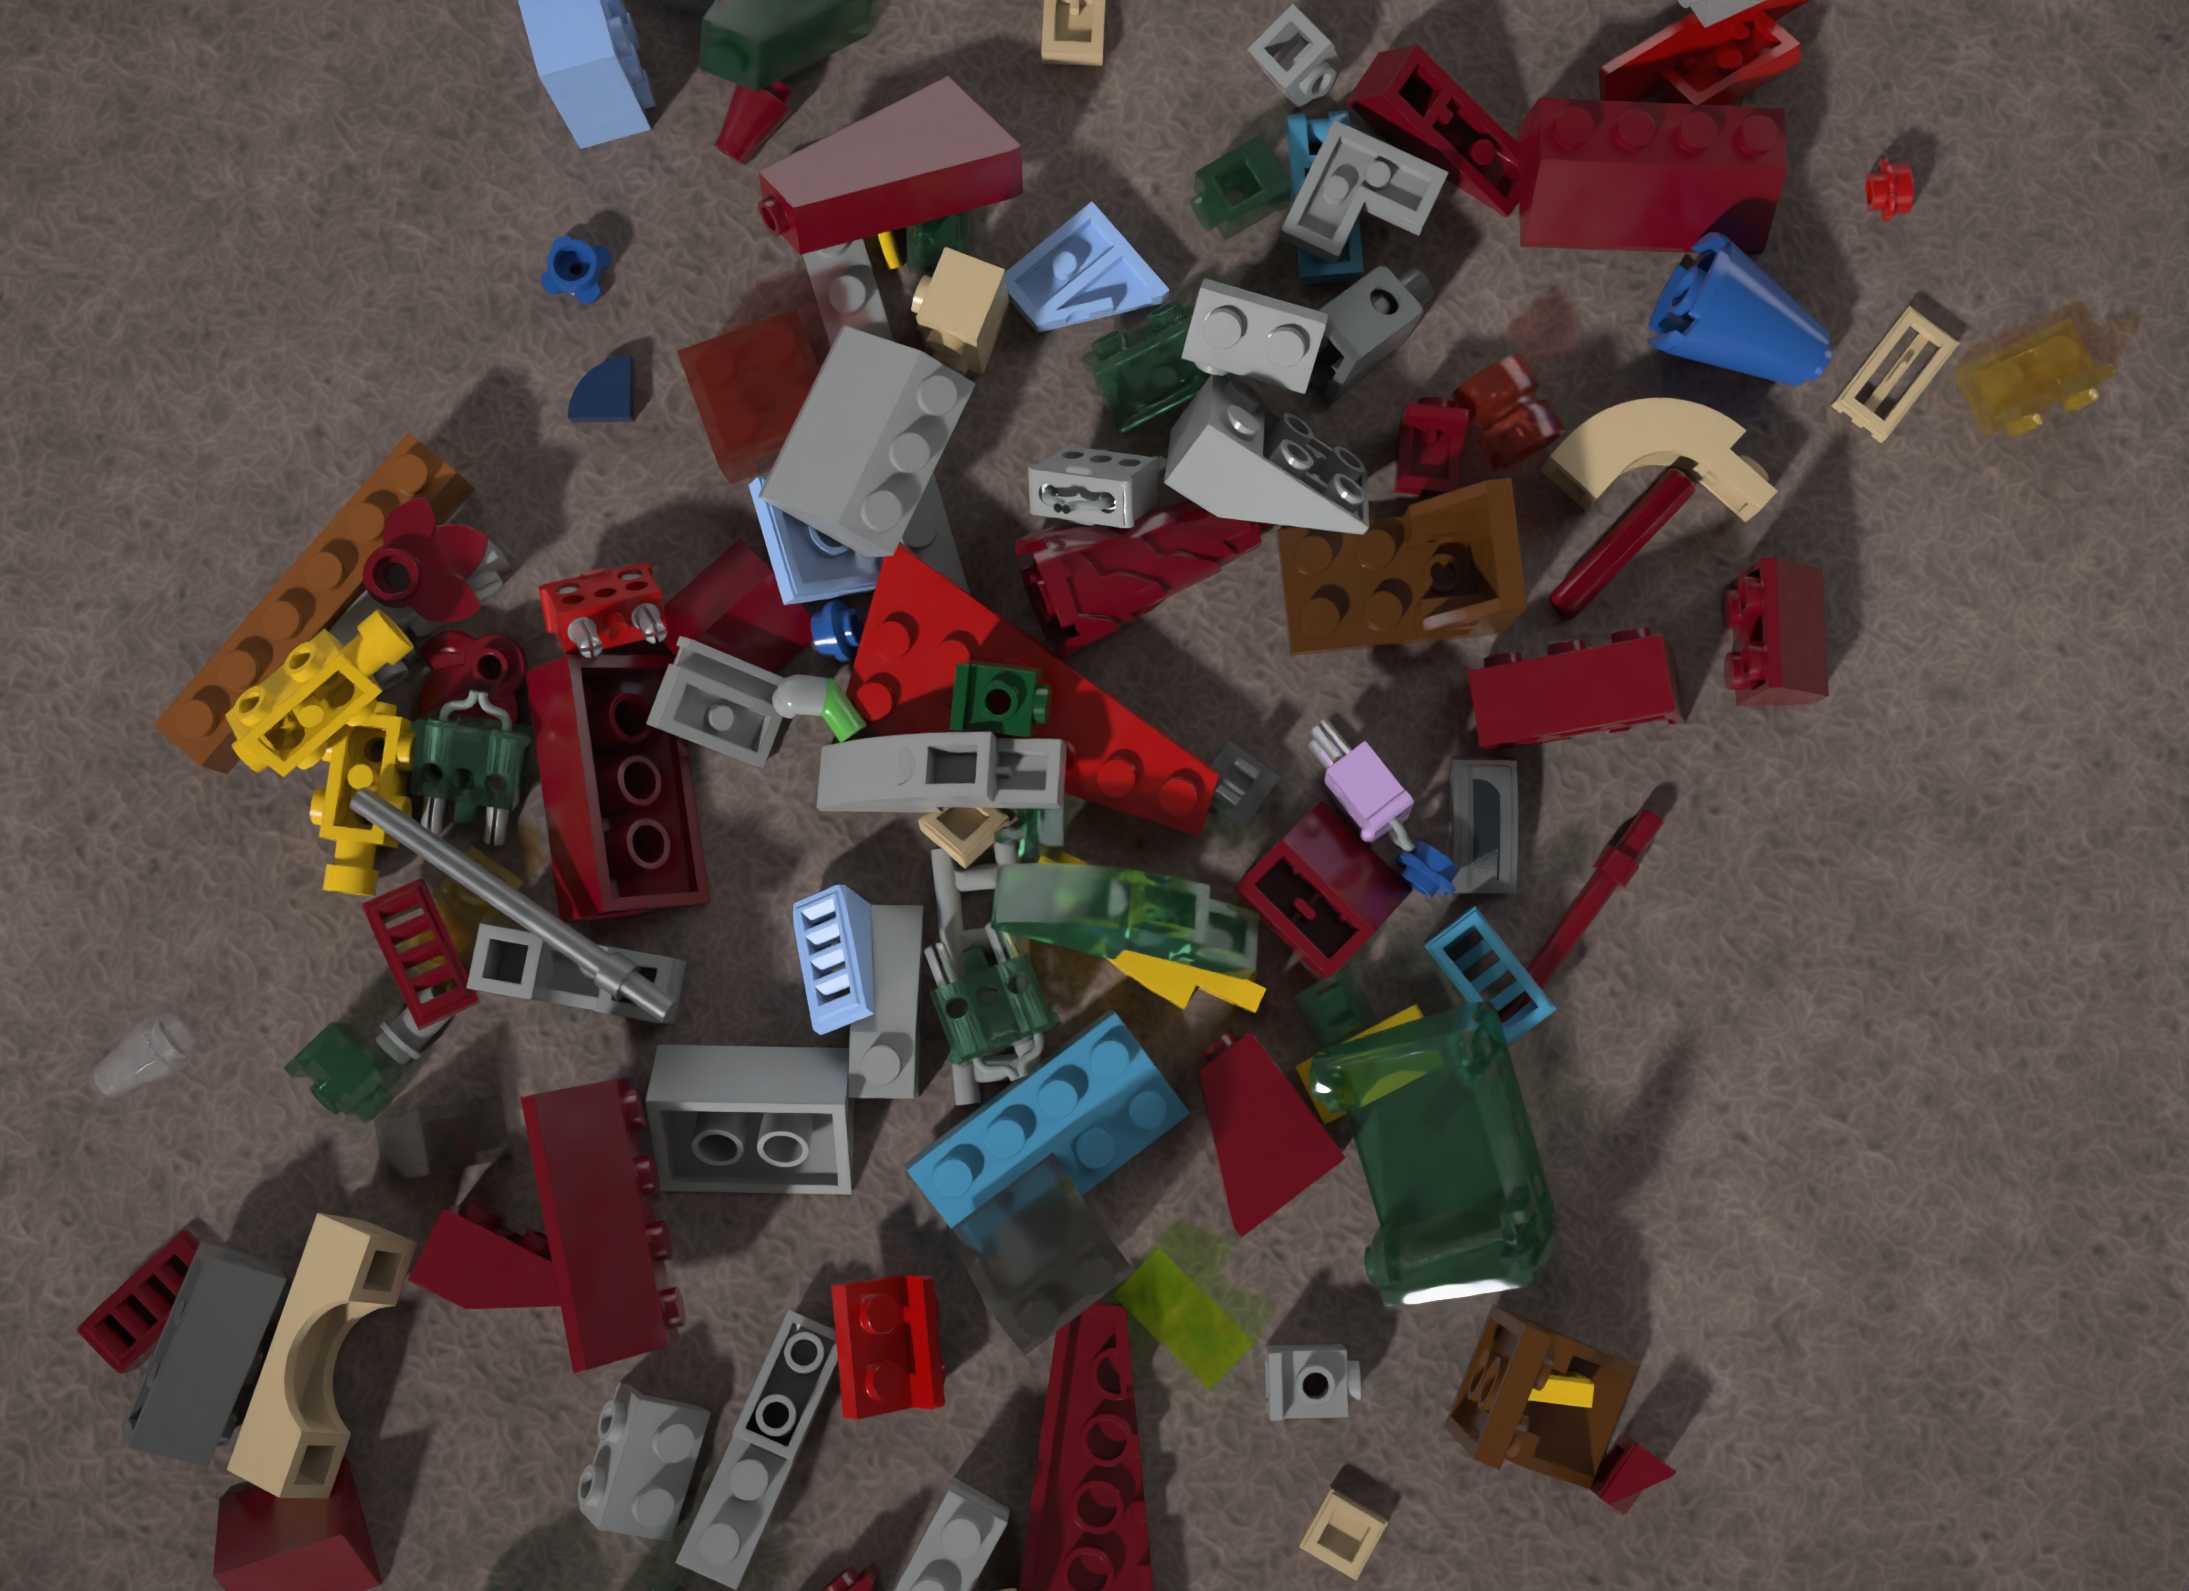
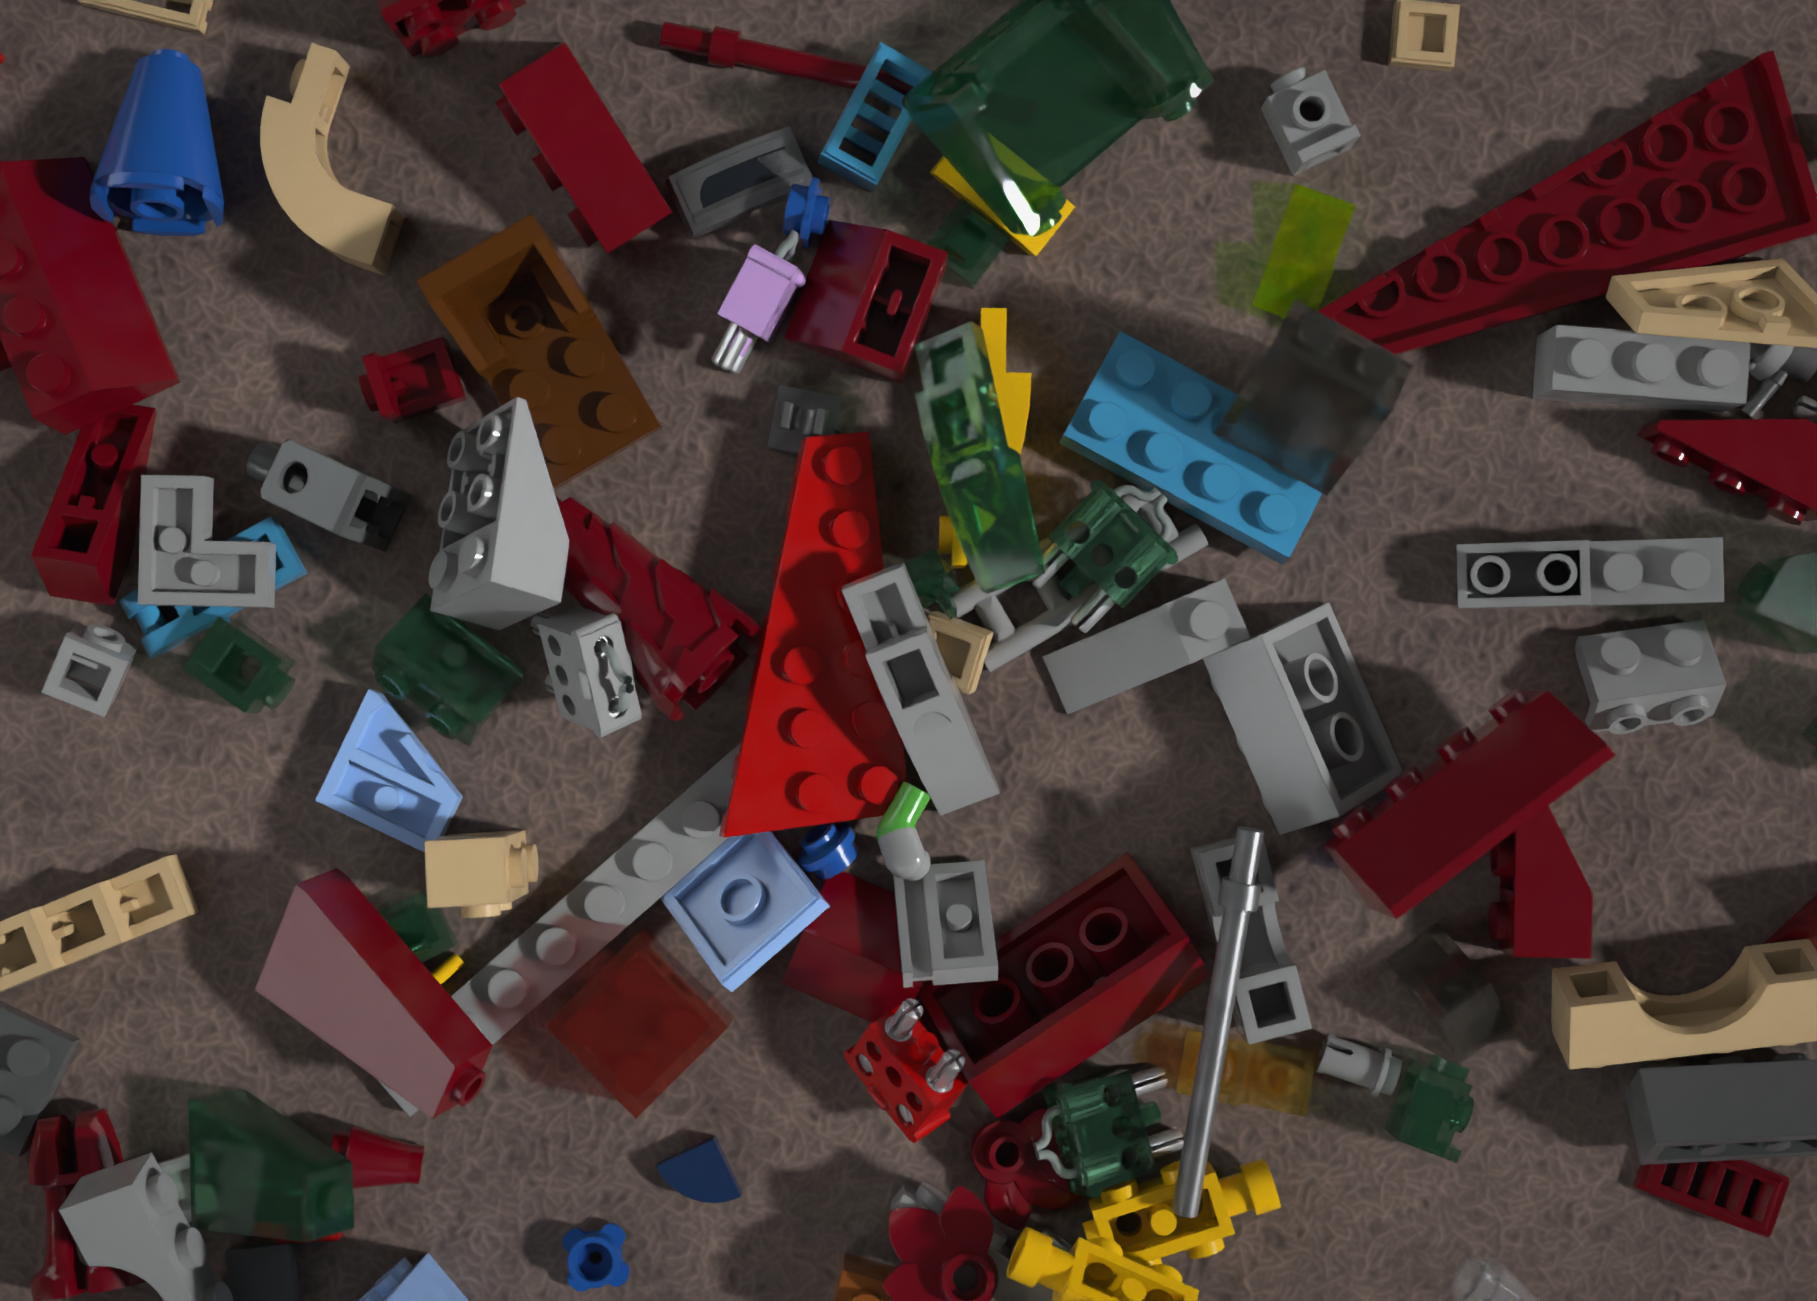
camera: 110 degrees left, 5 degrees up
(397, 904) = (1263, 1131): dark red slope -> none
(818, 922) = (1103, 739): light blue slope -> none
(867, 441) = (643, 897): light grey slope -> none
(888, 1345) = (1447, 505): red bracket -> none
(972, 693) = (816, 688): dark green brick -> none
(1254, 337) = (384, 580): light grey bracket -> none
(1260, 1131) = (1109, 259): dark red slope -> none
(1508, 412) = (345, 323): clear red wheel -> none
(1622, 543) = (421, 168): dark red axle -> none

